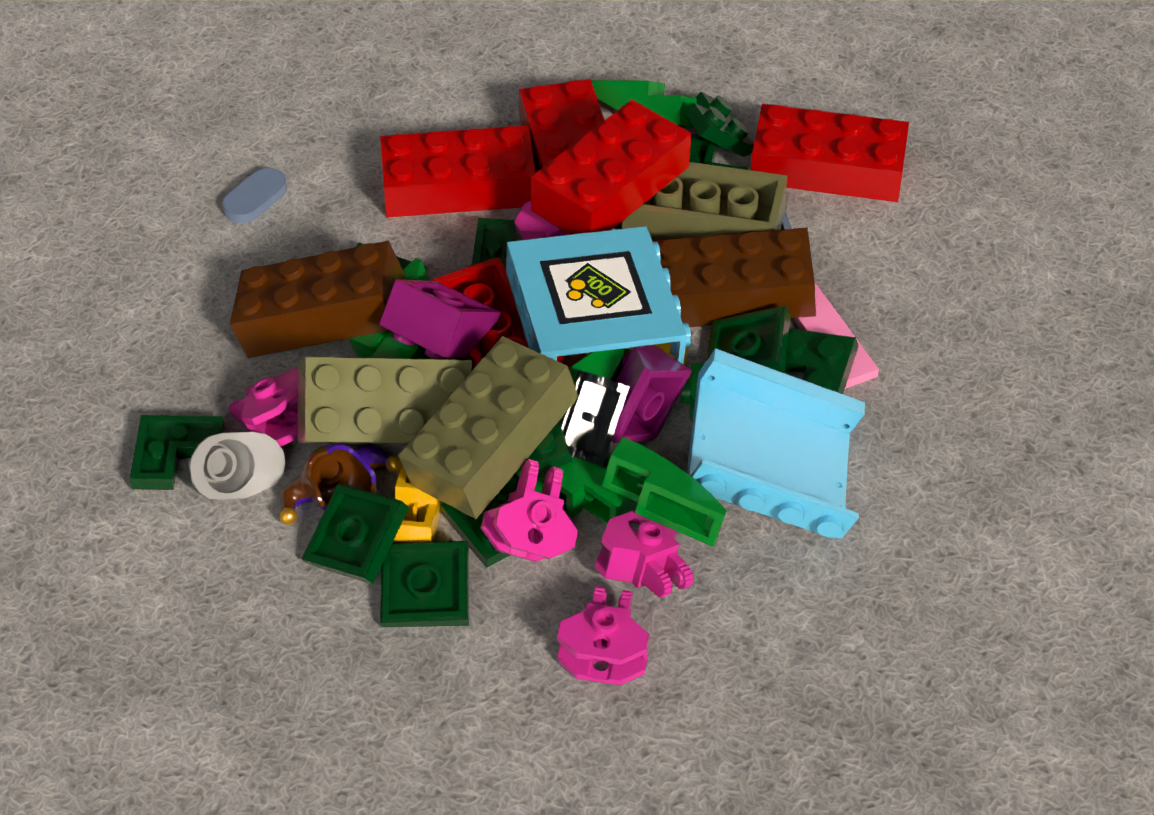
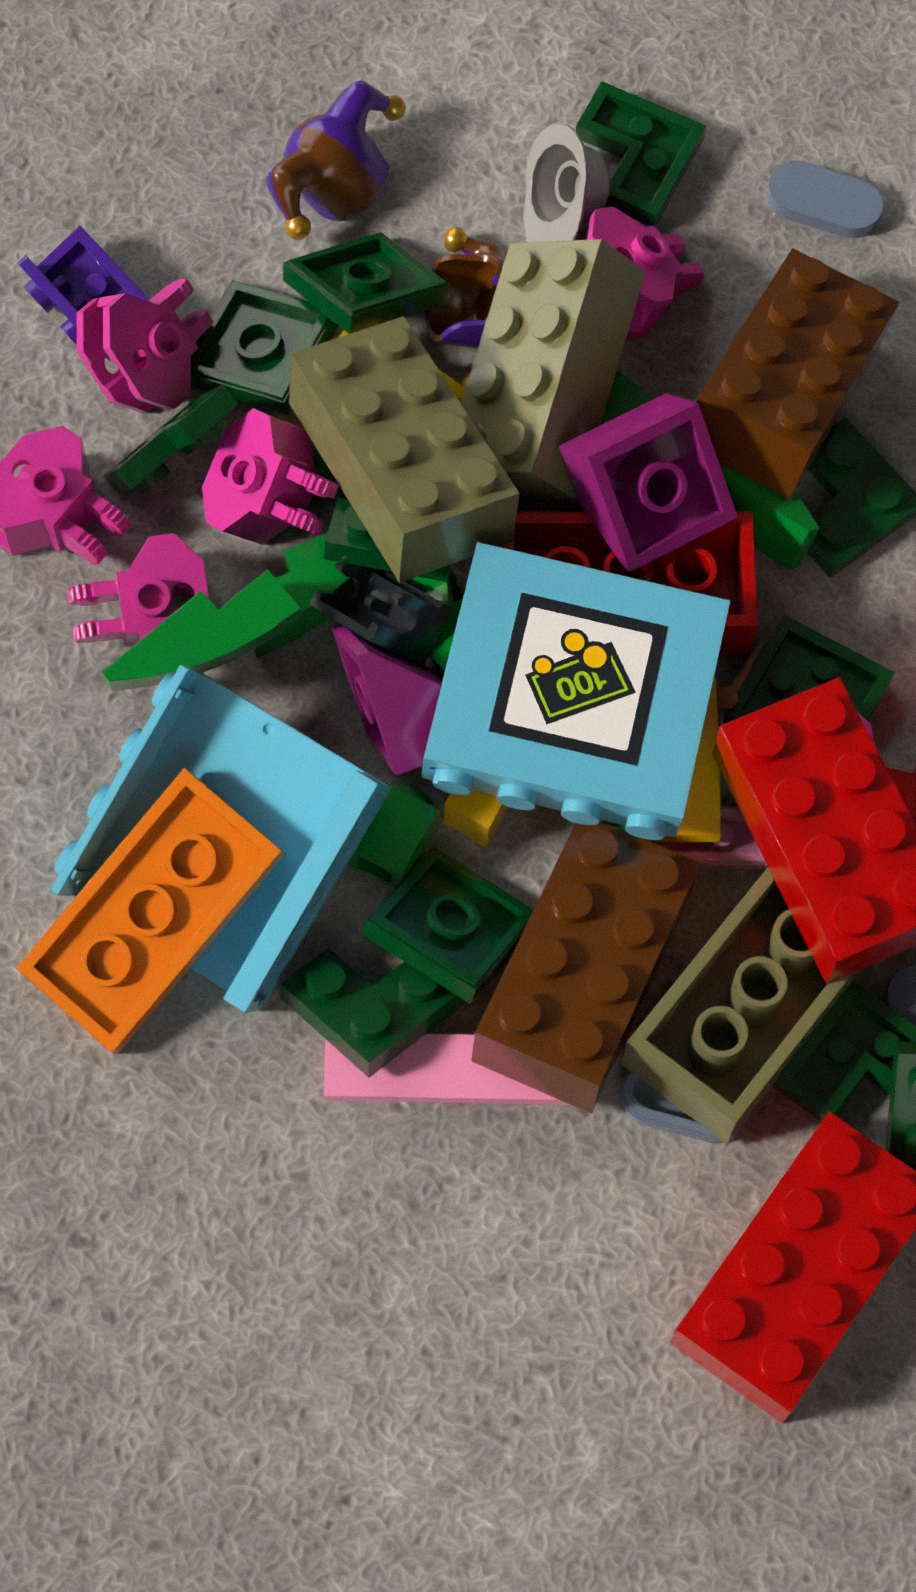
camera: 115 degrees right, 20 degrees up
(163, 352) = (825, 199): none -> sand blue tile
(263, 596) = (333, 159): none -> piece
(434, 690) = (75, 276): none -> dark purple bracket
(464, 624) = (145, 344): none -> dark pink hinge
(514, 594) = (188, 429): none -> dark green plate
(837, 467) = (150, 911): none -> orange plate

